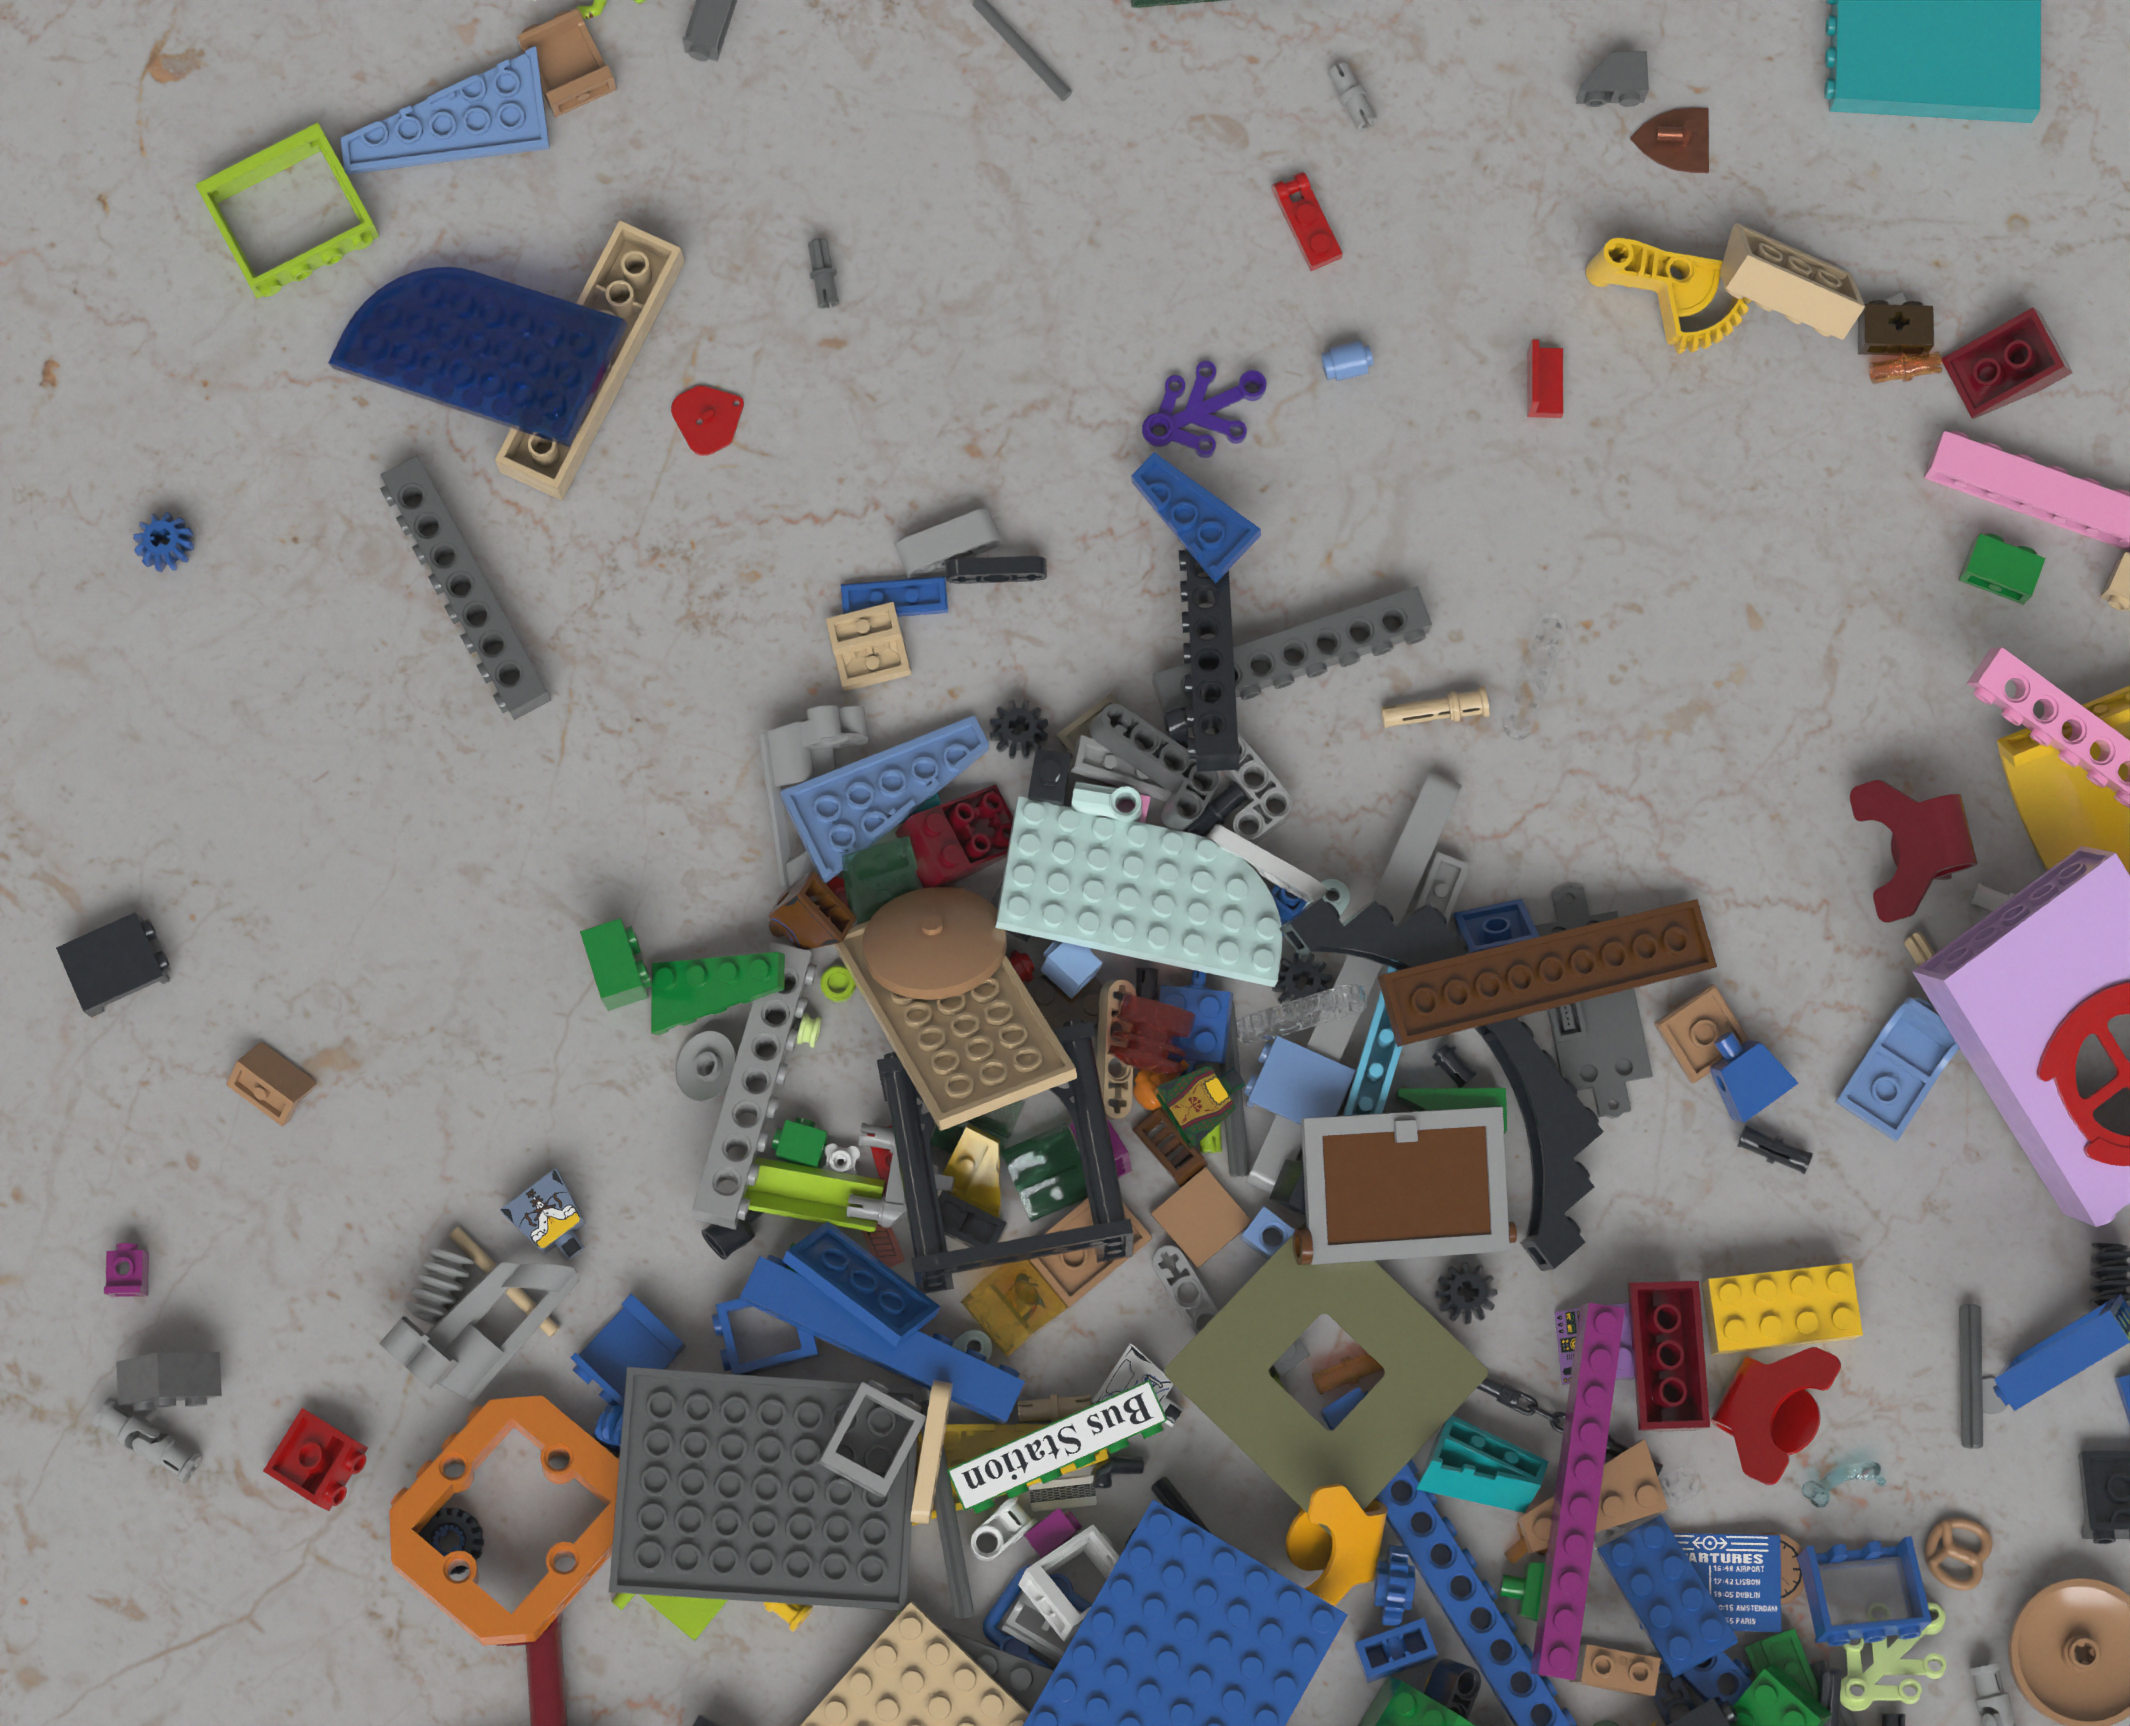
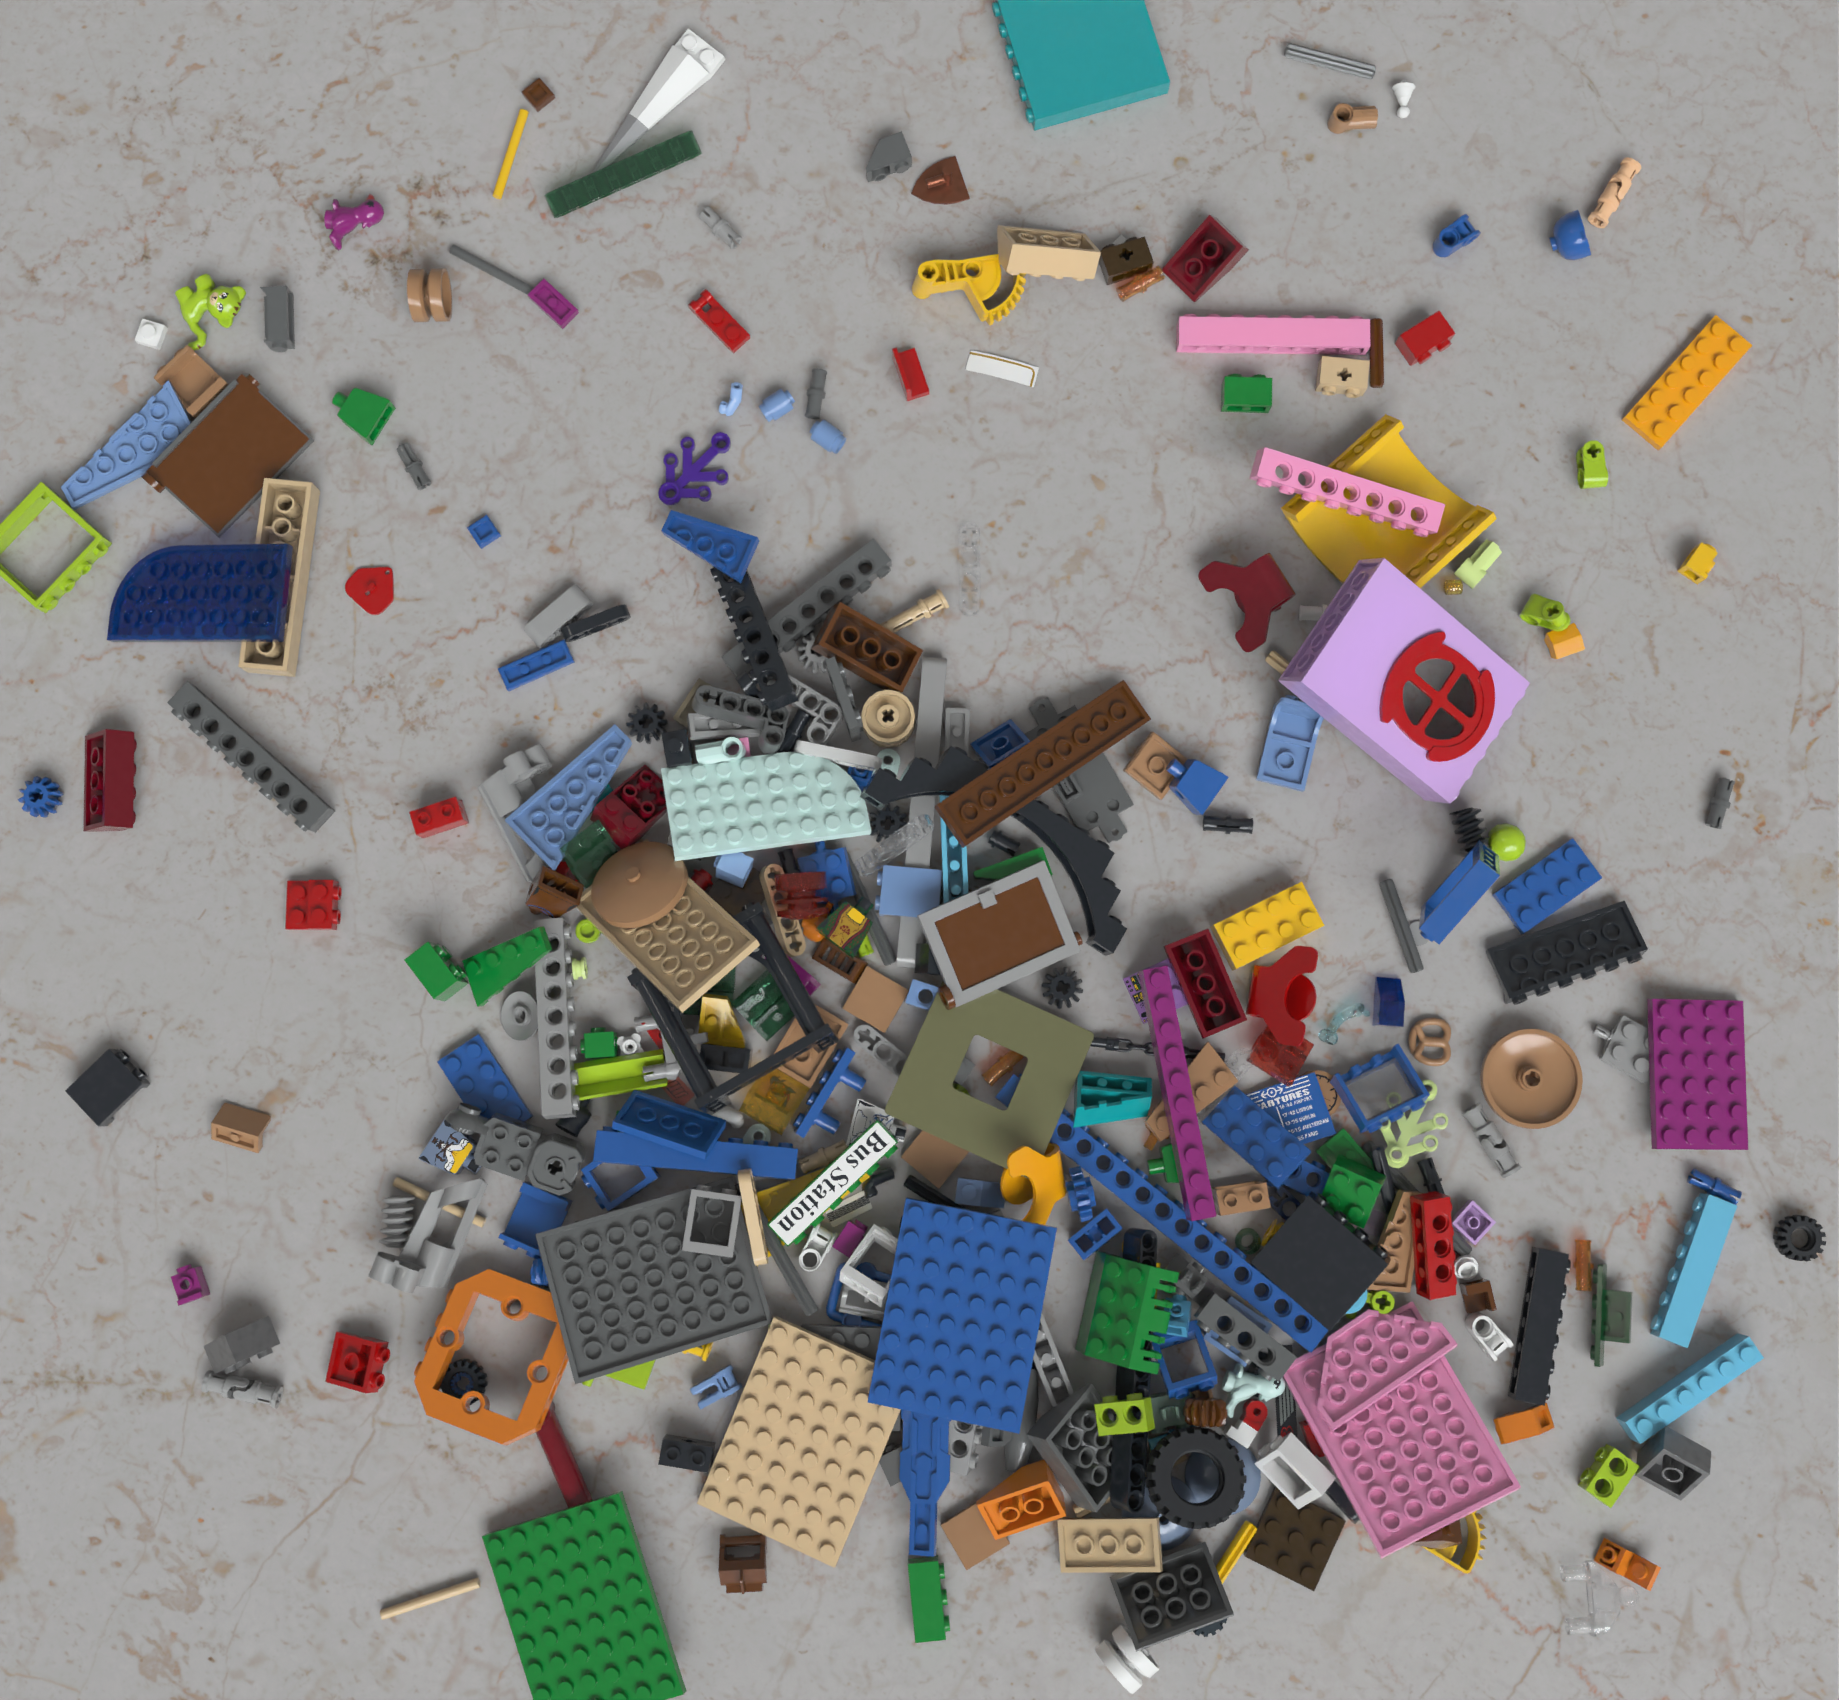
camera: 15 degrees left, 5 degrees up
(262, 552) = (109, 781): none -> dark red slope
(476, 816) = (313, 905): none -> red plate
(579, 172) = (227, 453): none -> reddish brown door
(621, 1149) = (483, 1081): none -> blue plate
(643, 1246) = (520, 1149): none -> dark grey brick
(690, 757) = (439, 817): none -> red hinge
(781, 179) = (364, 413): none -> green torso
(803, 1664) = (726, 1384): none -> medium blue piece
(868, 646) = (530, 703): tan slope -> none
(886, 394) = (484, 531): none -> blue tile
(927, 53) = (429, 295): none -> medium nougat wheel
(949, 1308) = (731, 1116): none -> white arm
(1071, 1327) = (814, 1112): none -> blue plate
(1089, 120) = (553, 304): none -> magenta plate
(1208, 1463) = (933, 1157): none -> medium nougat tile
(1253, 1535) = (979, 1193): none -> medium blue slope
(1292, 334) = (734, 401): none -> light blue arm
(1298, 710) = (811, 659): none -> light grey gear
(1303, 789) = (845, 698): none -> dark grey plate
(1354, 818) = (883, 705): none -> tan wheel
(1357, 733) = (867, 648): none -> reddish brown brick
(1402, 427) = (827, 436): none -> medium blue brick
(1405, 364) = (816, 393): none -> dark grey pin
(1674, 417) = (1002, 368): none -> white sticker
(1735, 1498) = (1278, 1060): none -> clear red plate
(1916, 1477) = (1388, 1003): none -> clear blue slope

